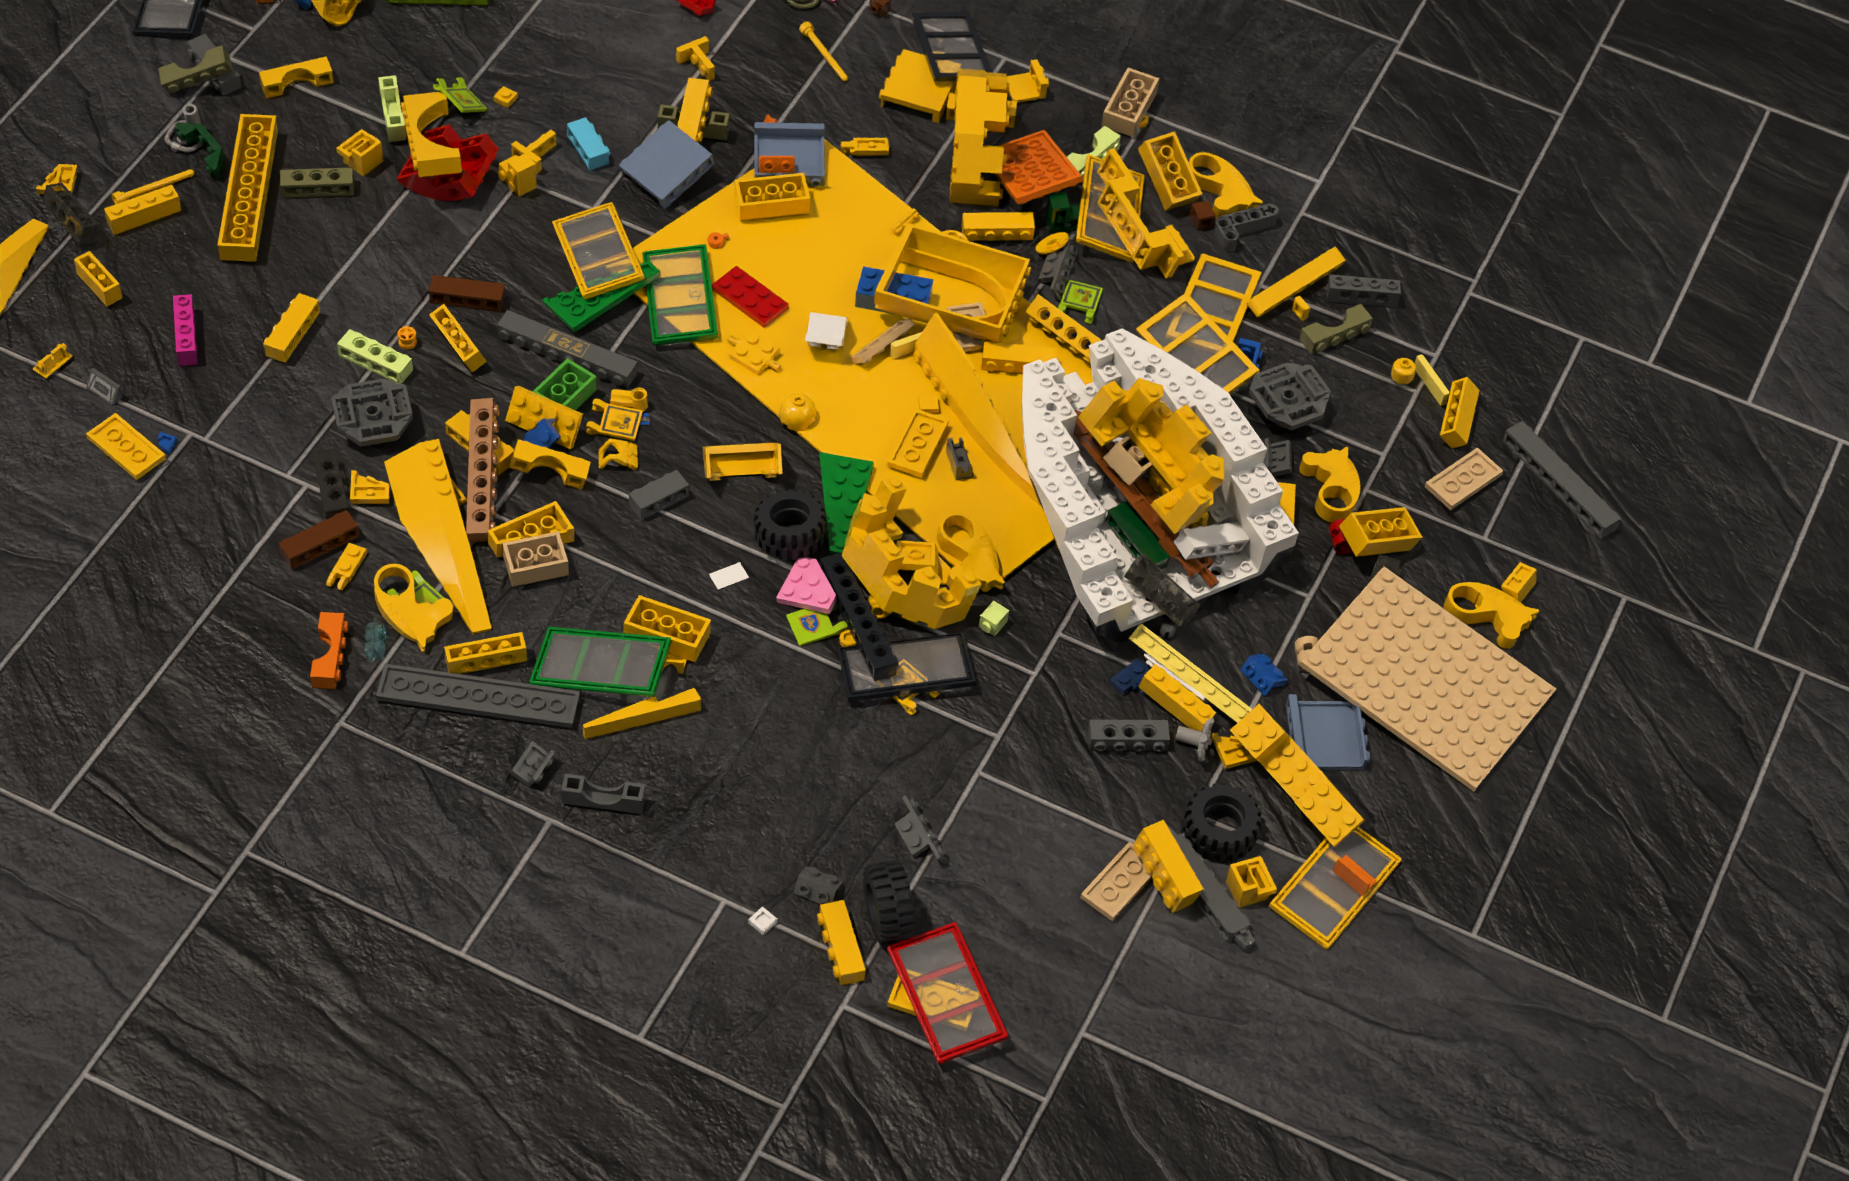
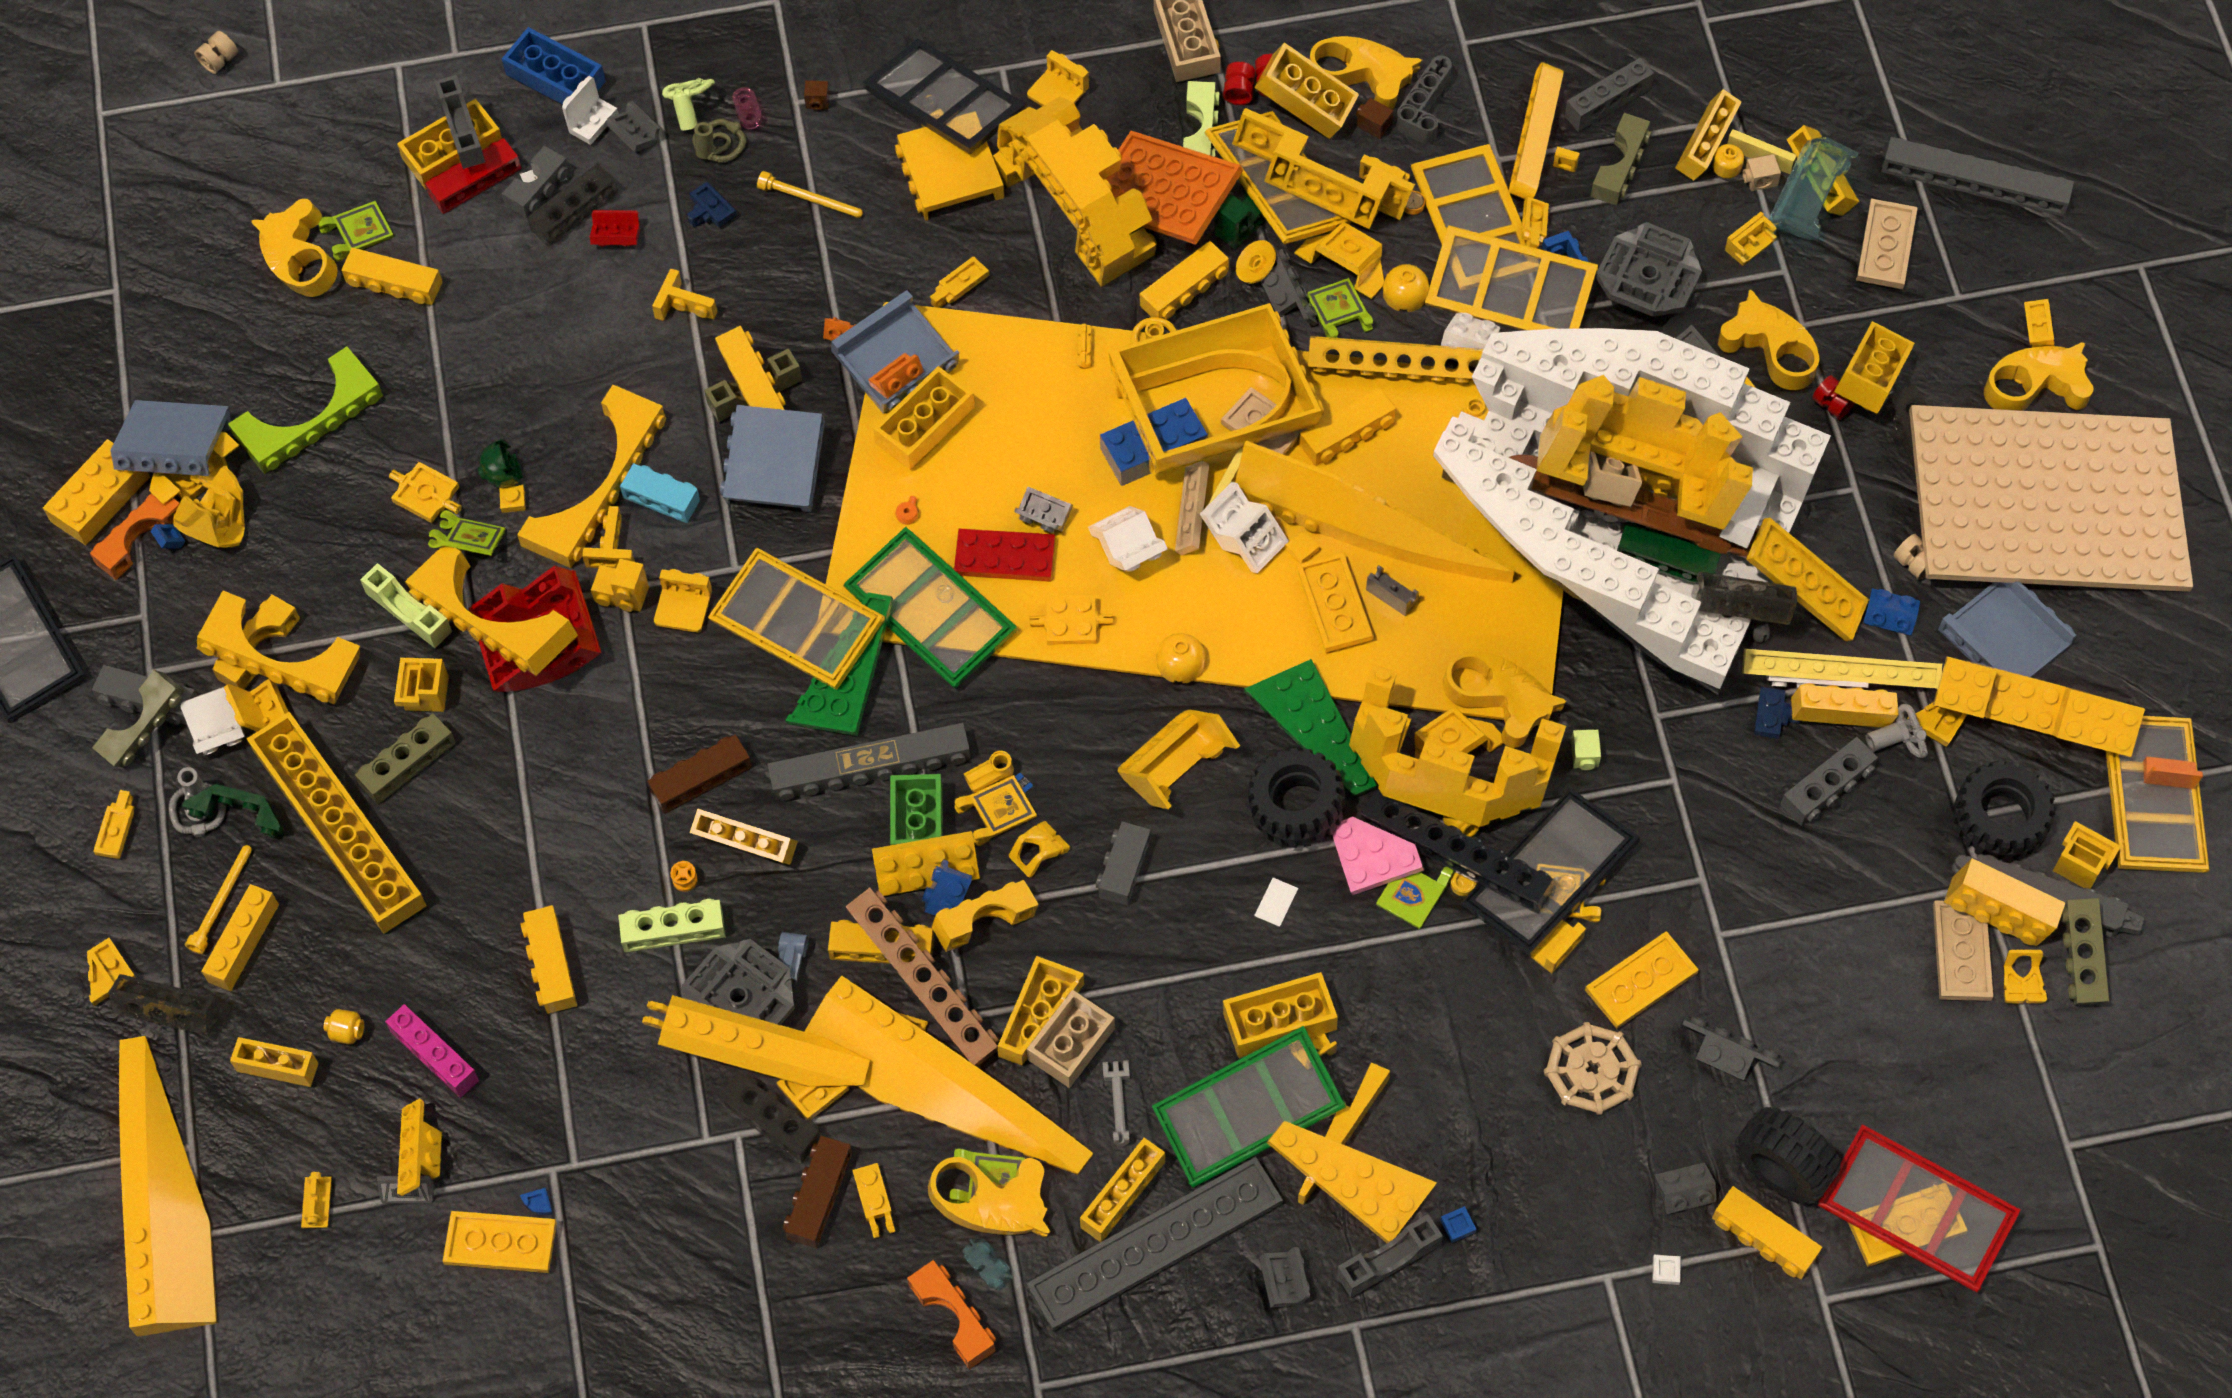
camera: 30 degrees left, 10 degrees up
(129, 371) = (418, 1148): none -> yellow bracket
(134, 116) = (115, 827): none -> yellow hinge
(152, 287) = (344, 1026): none -> yellow head
(234, 96) = (211, 721): none -> white bracket
(259, 103) = (257, 707): none -> yellow bracket
(311, 112) = (318, 676): none -> yellow arch
(355, 438) = (756, 1044): none -> yellow hinge
(427, 412) = (791, 951): none -> sand blue piece
(460, 62) = (425, 492): none -> yellow plate
(513, 73) = (499, 465): none -> dark green cylinder
(543, 598) = (1120, 1136): none -> light grey hinge
(546, 204) = (683, 600): none -> yellow bracket
(607, 102) = (567, 533): none -> yellow arch
(624, 744) = (1365, 1186): none -> yellow wing
(662, 809) = (1458, 1224): none -> blue plate
(762, 22) = (709, 206): none -> dark blue hinge
(795, 287) = (1043, 509): none -> bracket
(824, 776) = (1596, 1054): none -> tan plate
(872, 709) = (1559, 946): none -> yellow panel
(901, 368) = (1244, 527): none -> white bracket
(903, 760) = (1641, 980): none -> yellow plate
(1117, 276) = (1351, 250): none -> yellow piece
(1130, 148) = (1239, 83): none -> red wheel
(1131, 313) = (1405, 288): none -> yellow cylinder
(1138, 928) = (2027, 988): none -> yellow piece
(1183, 274) = (1415, 204): none -> tile
(1184, 958) = (2088, 911): none -> olive brick
(1217, 611) = (1817, 585): none -> yellow plate
(1246, 327) = (1534, 222): none -> yellow hinge
(1377, 421) = (1751, 239): none -> yellow hinge
(1405, 347) = (1708, 134): none -> yellow brick
(1420, 391) = (1762, 172): none -> tan brick
(1437, 412) = (1809, 185): none -> clear light blue windscreen

